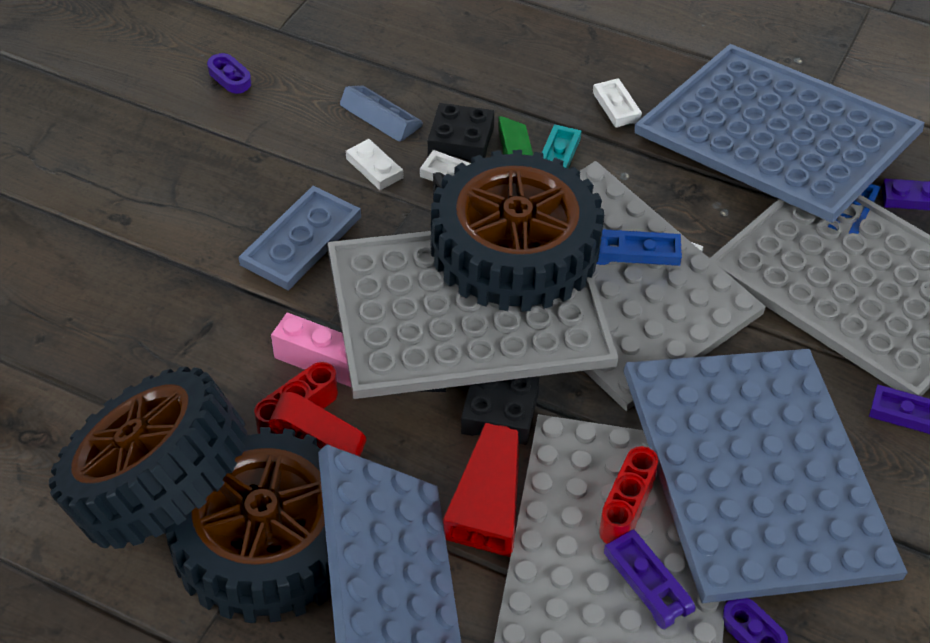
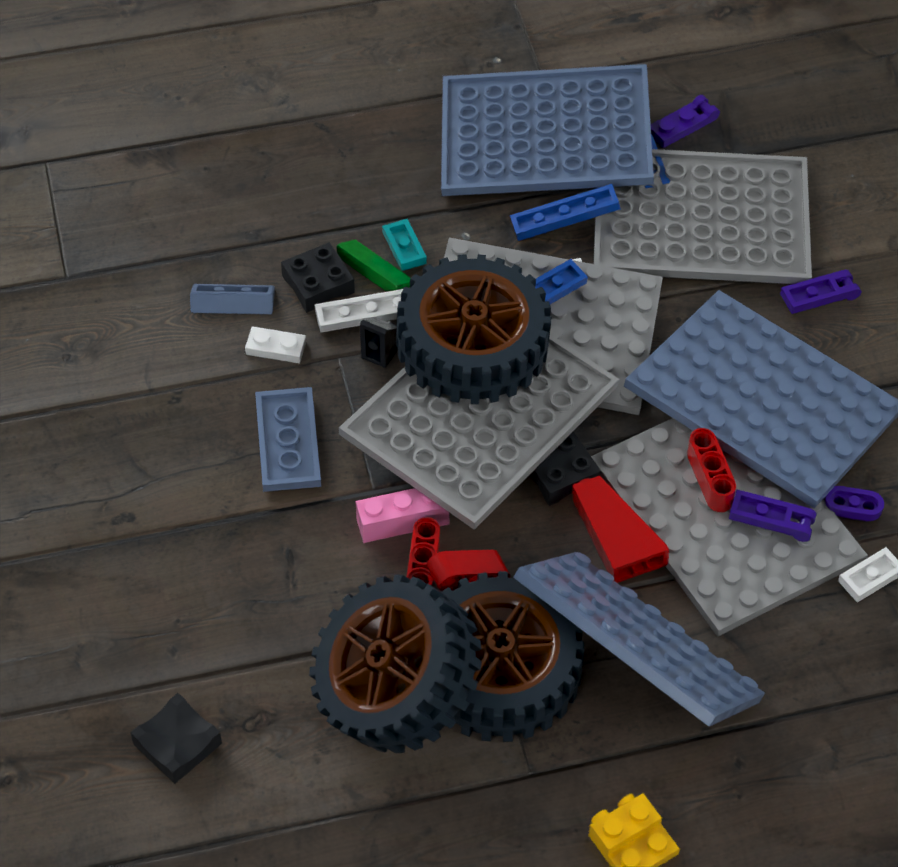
camera: 40 degrees left, 5 degrees up
(229, 73) = (77, 341): dark purple plate -> none
(617, 102) = (406, 178): white plate -> none
(726, 201) = (565, 212): none -> blue plate

